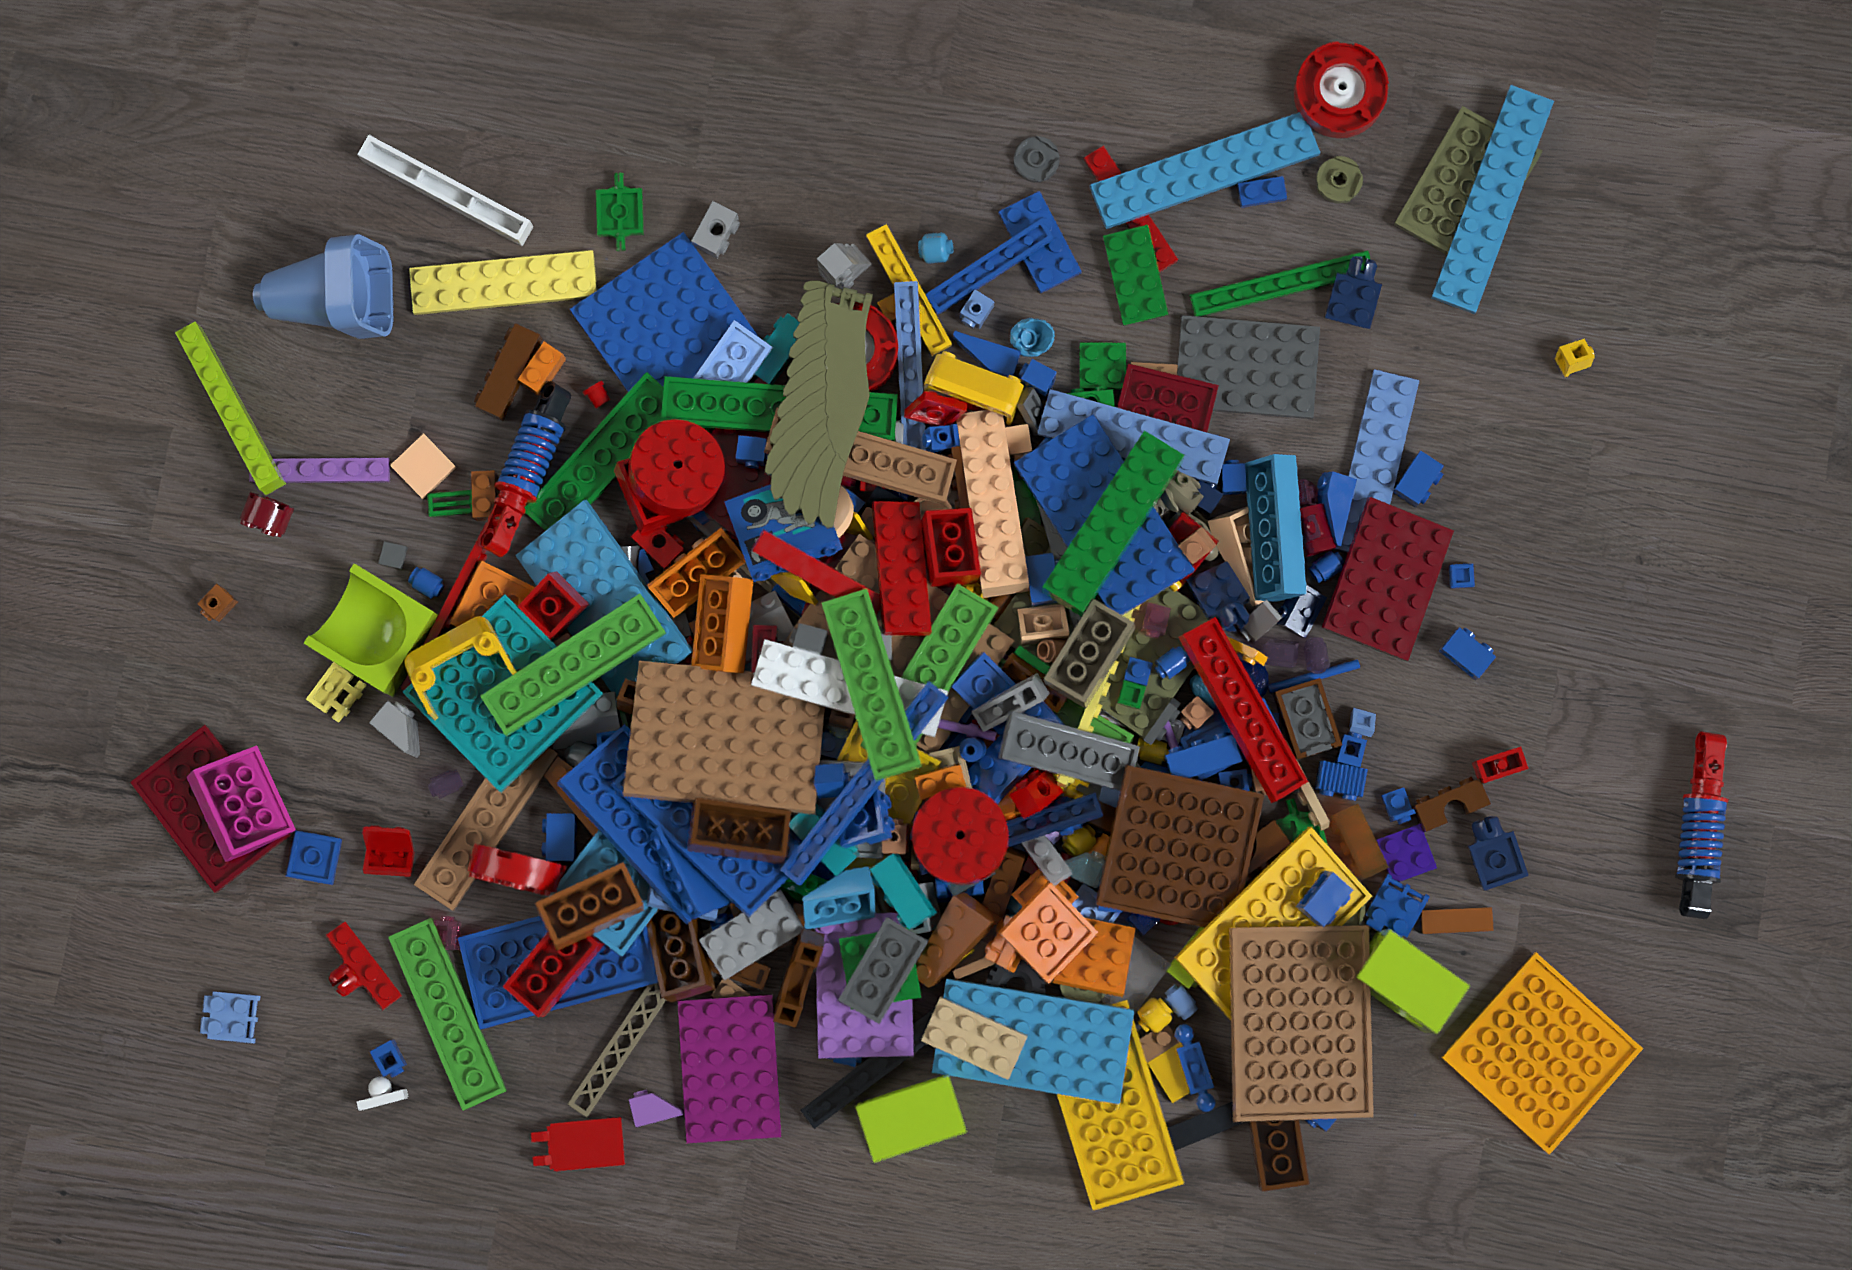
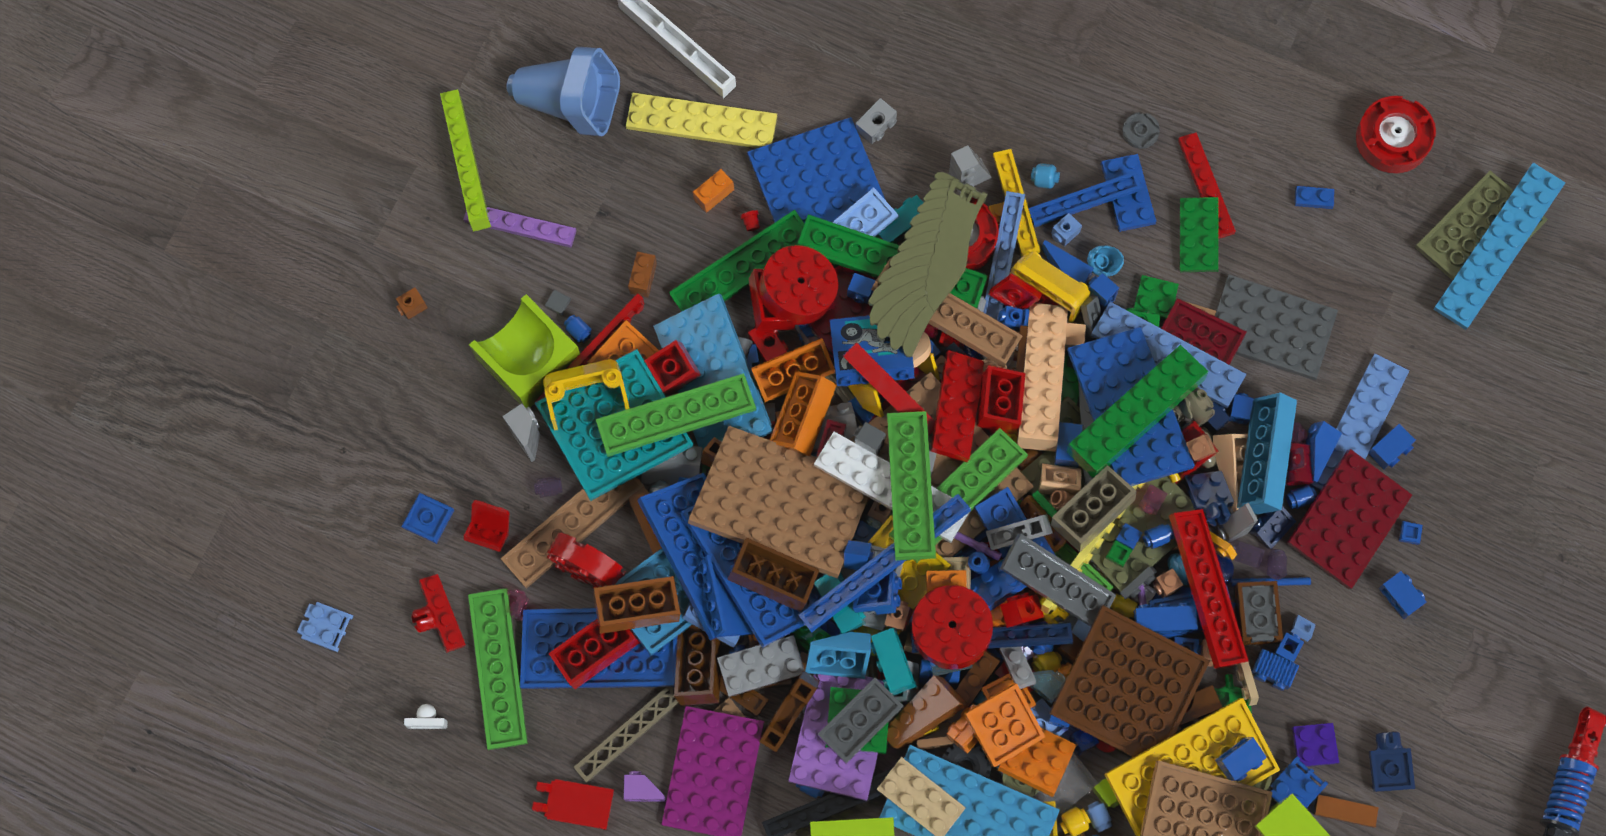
camera: 15 degrees right, 10 degrees down
(174, 804) = (358, 459): dark red plate -> none
(240, 803) = (383, 458): dark pink slope -> none
(266, 514) = (469, 245): dark red brick -> none
(329, 689) = (479, 390): light yellow plate -> none
(381, 1055) = (435, 687): blue brick -> none
(423, 466) = (600, 241): light nougat tile -> none
(431, 505) = (614, 275): green tile -> none
(502, 380) = (680, 192): reddish brown brick -> none
(525, 467) = (680, 259): piece -> none
(560, 837) = (628, 549): blue brick -> none
(619, 212) = (805, 90): green plate -> none
(1204, 170) = (1272, 169): dark azure plate -> none
(1271, 286) = (1314, 270): green tile -> none
(1351, 174) = (1374, 212): olive plate -> none
(1355, 294) = (1372, 291): dark blue plate -> none
(1358, 842) = (1278, 724): clear orange brick -> none
(1398, 806) = (1317, 704): blue bracket -> none
(1469, 795) = (1379, 710): reddish brown arch -> none
(1500, 765) = (1410, 691): red brick -> none
(1574, 357) = (1540, 383): yellow brick -> none

